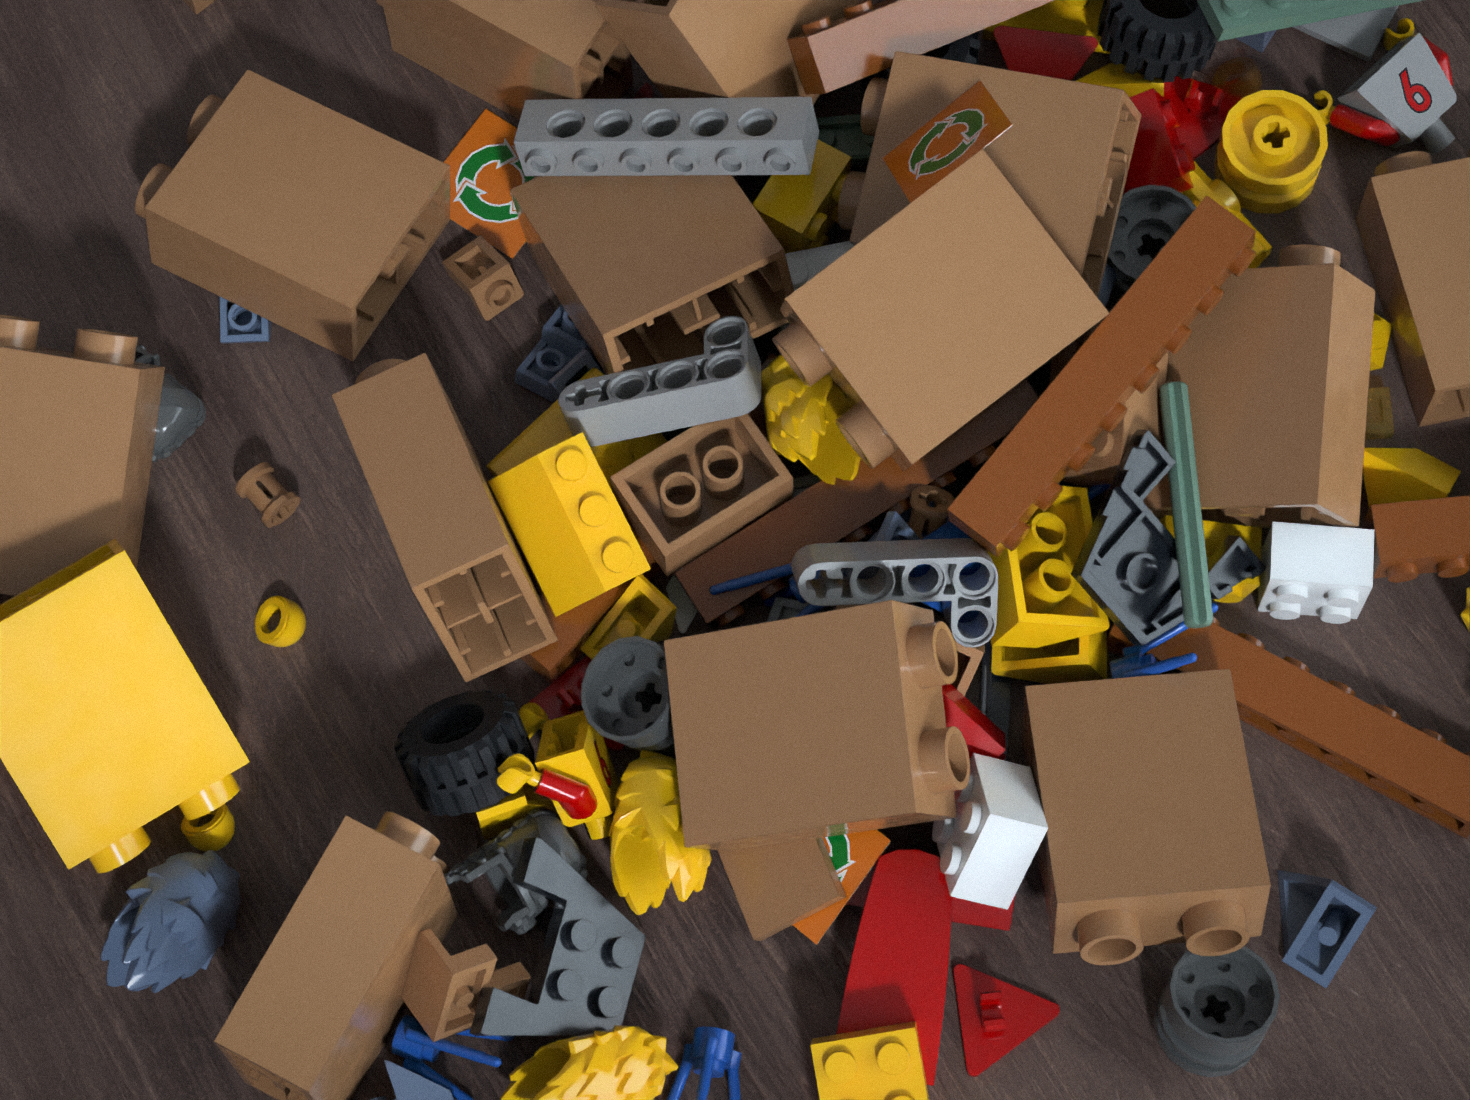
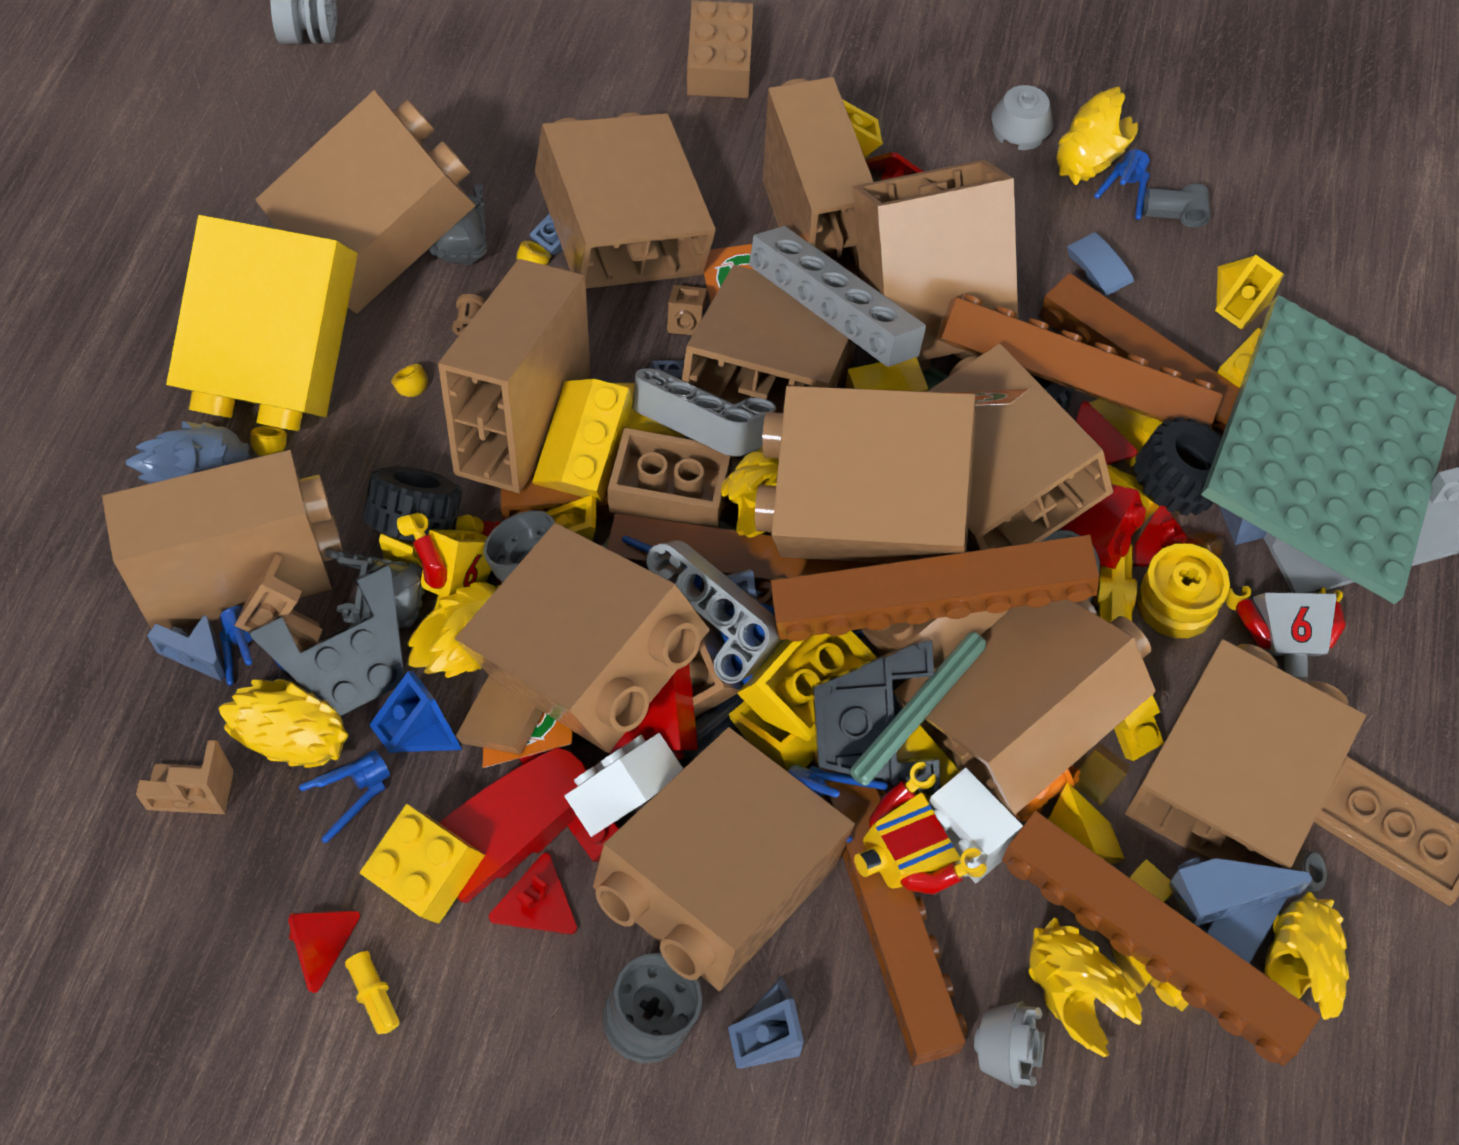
camera: 40 degrees right, 10 degrees down
(250, 370) = (533, 252): none -> yellow piece
(699, 964) = (413, 720): none -> blue slope
(1289, 639) = (910, 843): none -> torso

